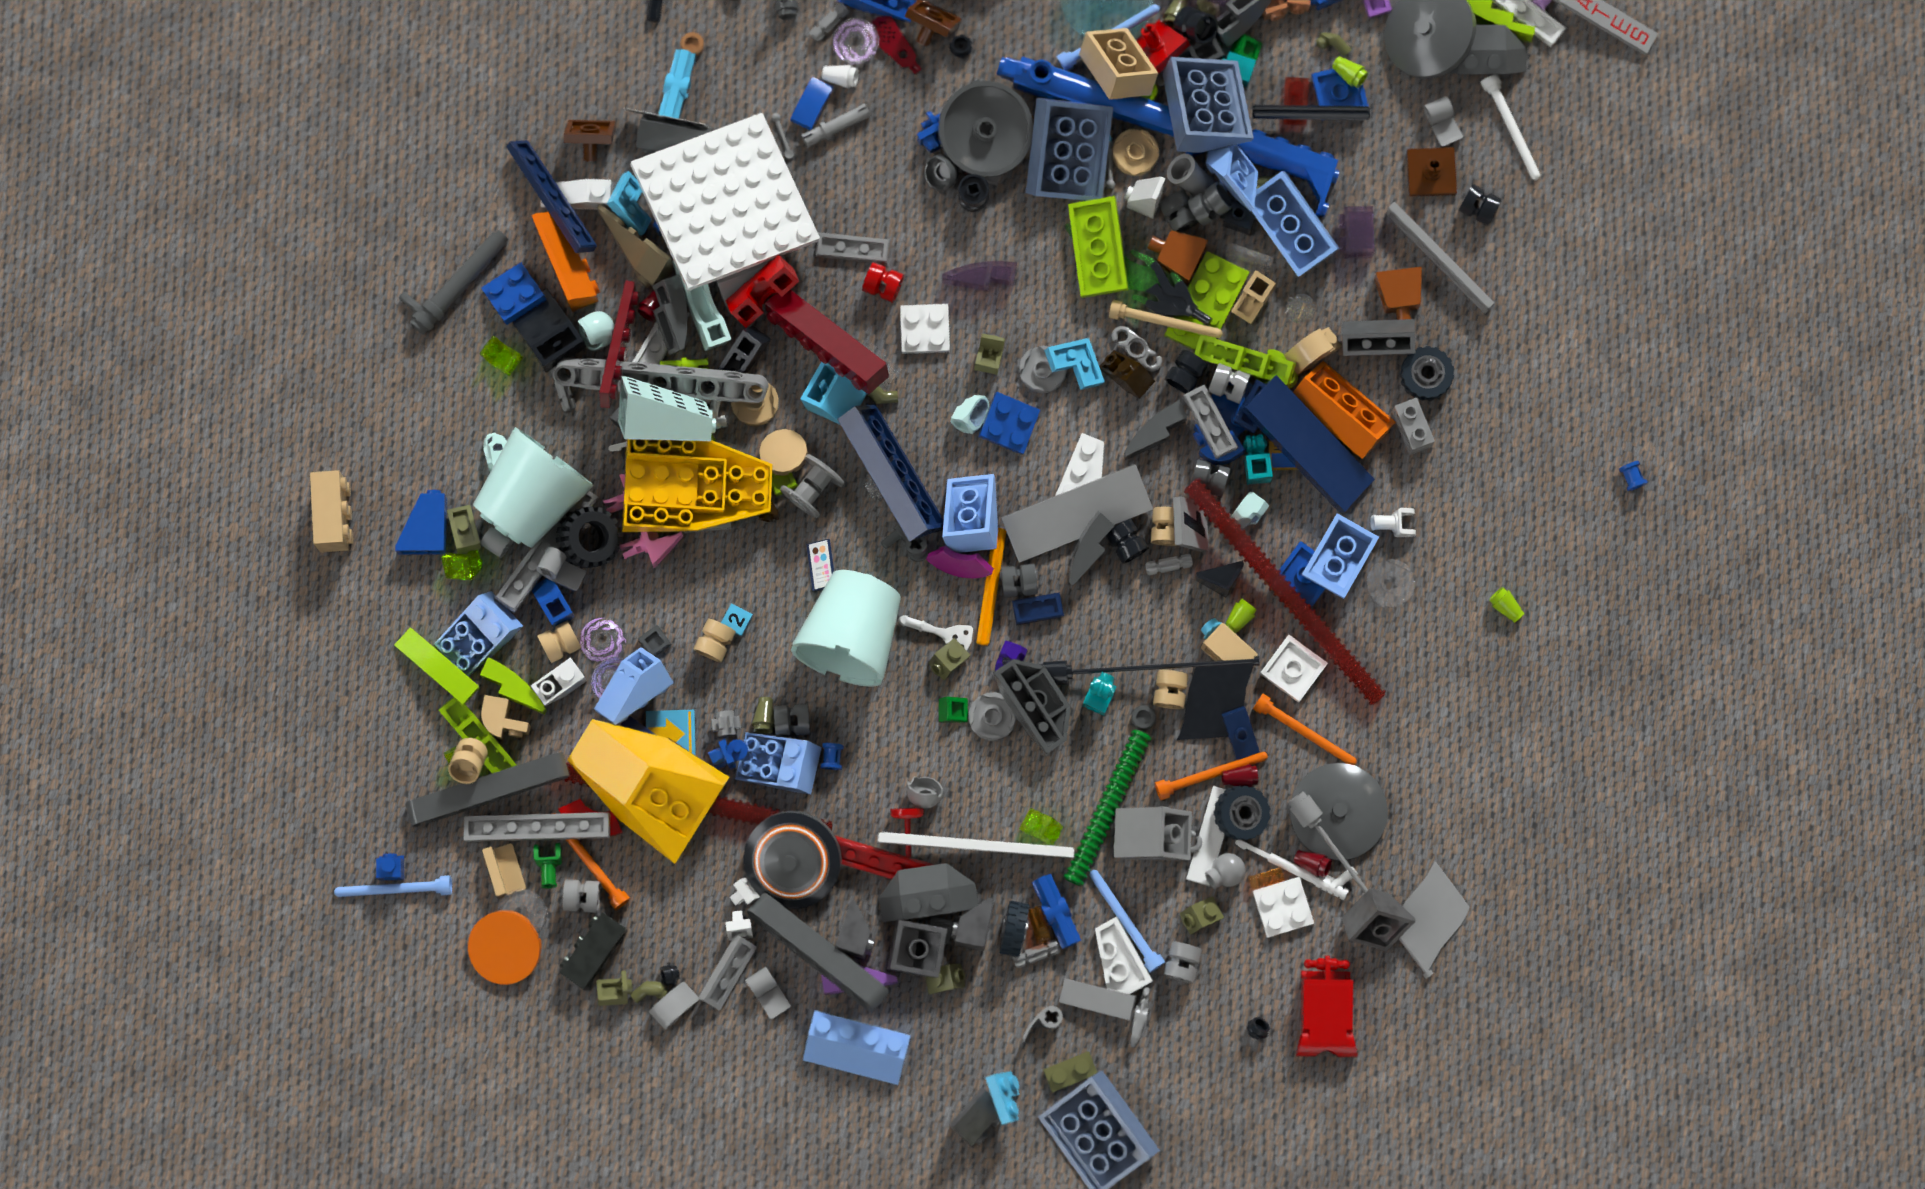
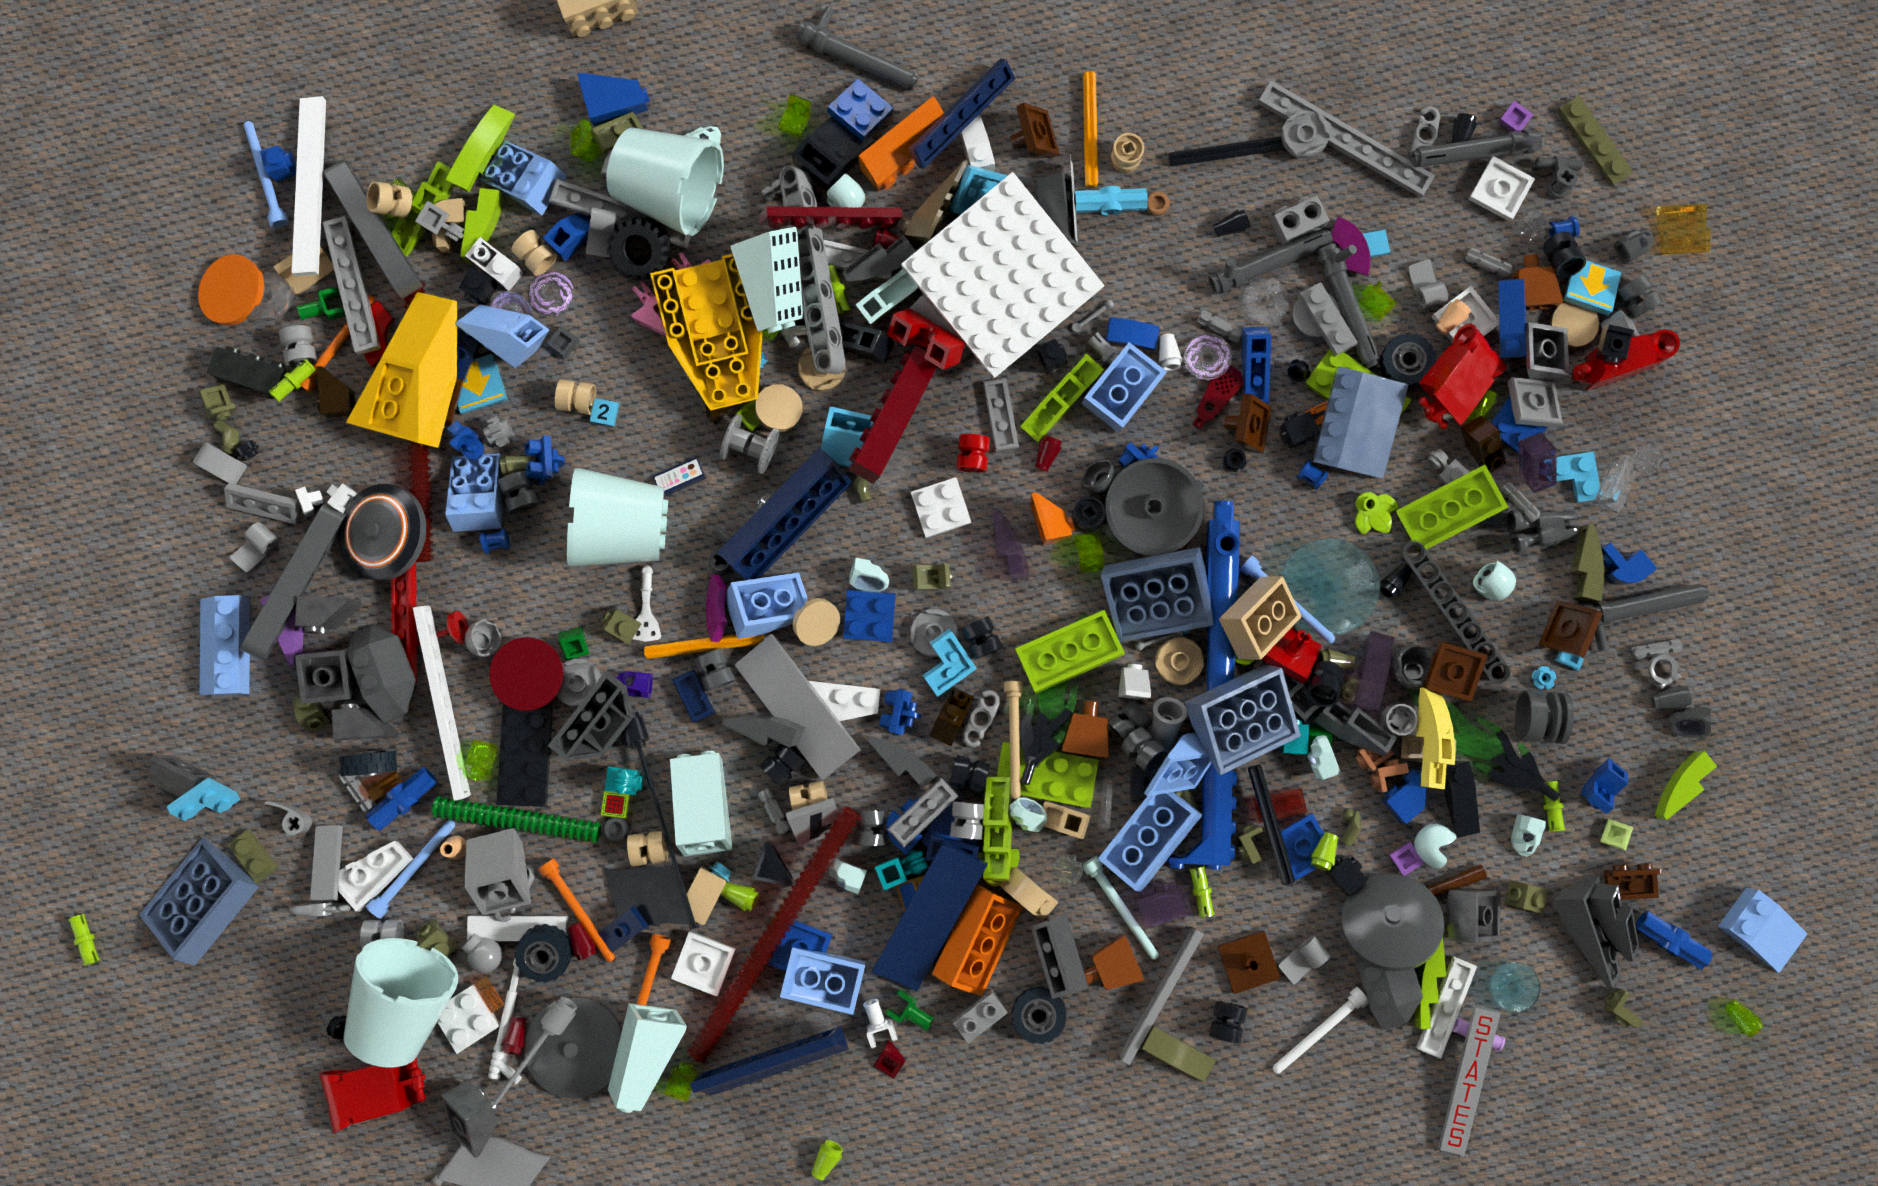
camera: 75 degrees right, 5 degrees up
(424, 841) = (309, 186): none -> white tile
(500, 722) = (434, 219): none -> light grey plate
(576, 705) = (477, 287): none -> black brick
(600, 85) = (1090, 129): none -> light orange axle
(617, 906) = (292, 381): none -> lime pin
(636, 56) = (1127, 152): none -> tan wheel
(642, 872) = (335, 396): none -> dark brown slope
(769, 686) = (546, 459): none -> blue hips
(811, 183) = (1052, 355): none -> black brick
(854, 186) = (1062, 397): none -> lime slope
(863, 125) = (1123, 387): none -> light blue slope
(902, 214) = (1047, 452): none -> dark red cone
(968, 230) = (1050, 520): none -> orange slope
(971, 757) = (526, 674): none -> dark red tile
(1001, 472) = (816, 622): none -> tan tile
(1009, 203) = (1089, 552): none -> clear neon green bracket
(1026, 777) = (524, 756): none -> black plate
(1053, 324) = (977, 630): none -> black wheel
(1098, 416) = (902, 713): none -> blue hips
(1115, 880) = (458, 845): none -> light nougat cone
(1119, 711) = (615, 804): none -> tile
(1143, 627) = (700, 804): none -> light aqua slope
(1240, 328) = (1028, 814): none -> light aqua rock
(1250, 950) = (396, 1000): none -> light aqua cone
(1264, 48) = (1322, 758): none -> light aqua rock
(1306, 285) = (1095, 869): none -> light aqua piece
(1328, 141) = (1247, 848): none -> olive bracket
(1354, 194) = (1201, 891): none -> lime pin
(1363, 742) = (642, 1053): none -> light aqua slope
(1376, 59) = (1347, 874): none -> black brick
(1393, 488) = (911, 1012): none -> green piece
(1398, 720) = (679, 1081): none -> clear neon green bracket
(1402, 625) = (771, 1062): none -> dark blue arch
(1431, 522) = (890, 1060): none -> dark red slope
(1496, 258) = (1178, 1053): none -> olive slope

